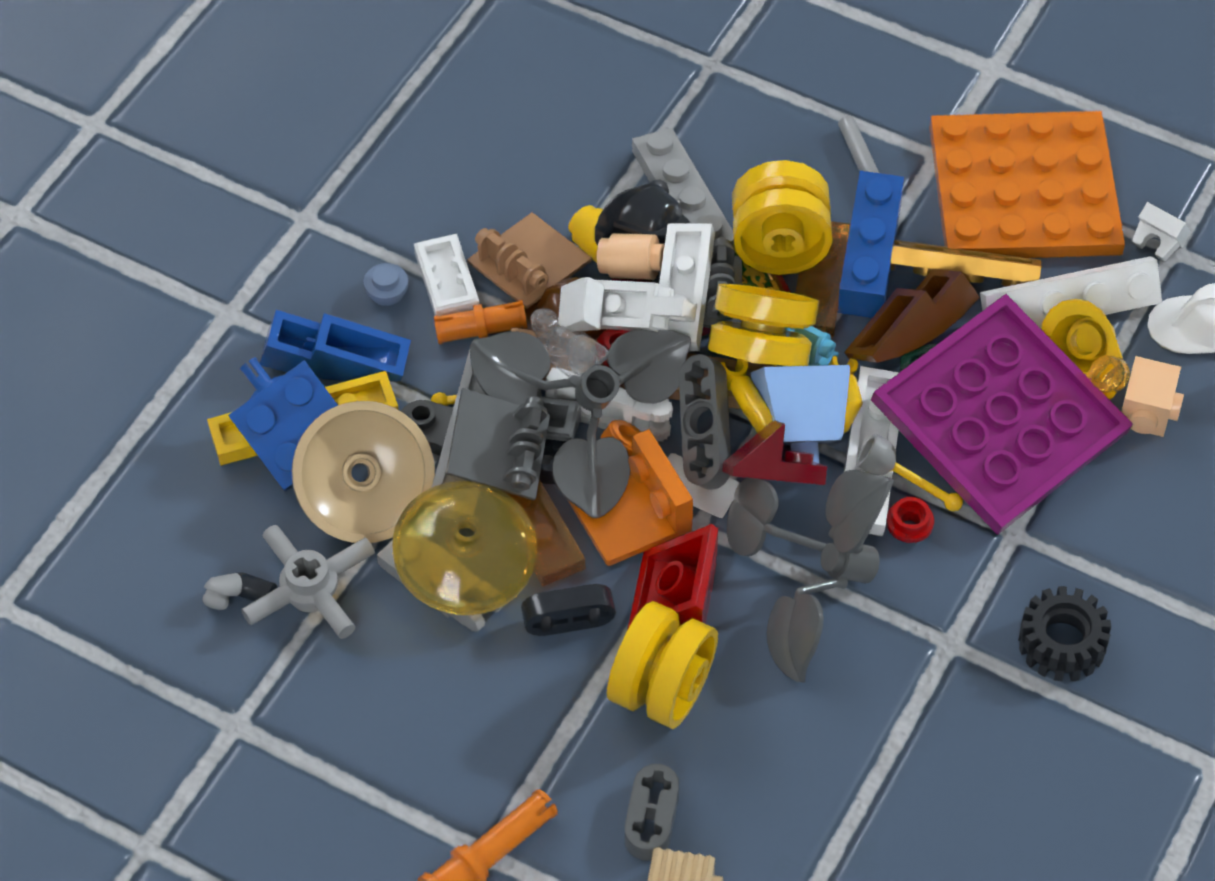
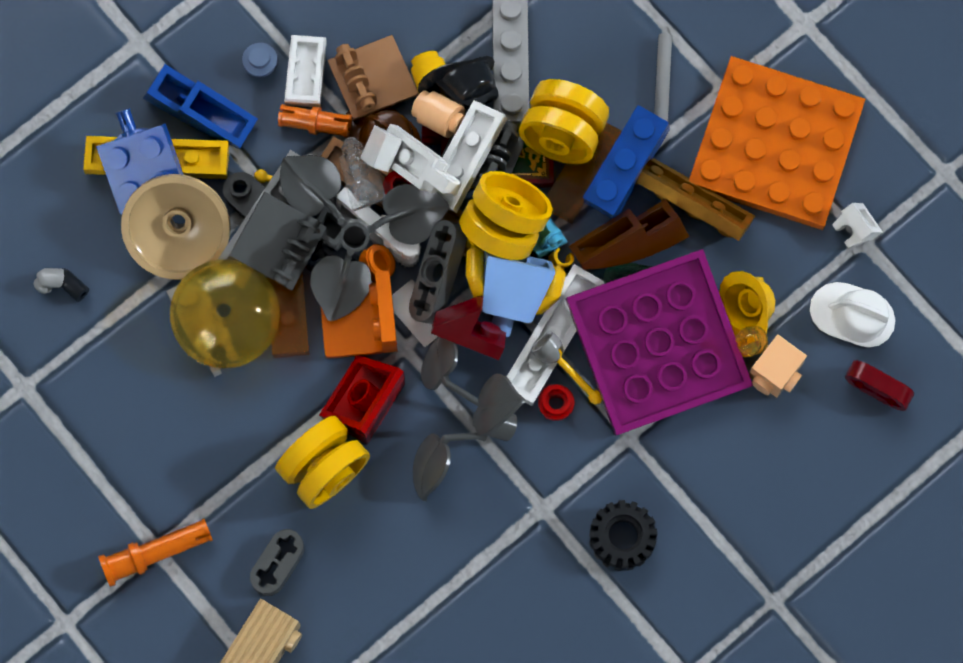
camera: 20 degrees right, 20 degrees up
(308, 581) = (122, 296): light grey bar -> none
(568, 609) = (281, 386): black beam -> none
(1108, 287) = (766, 259): white plate -> none

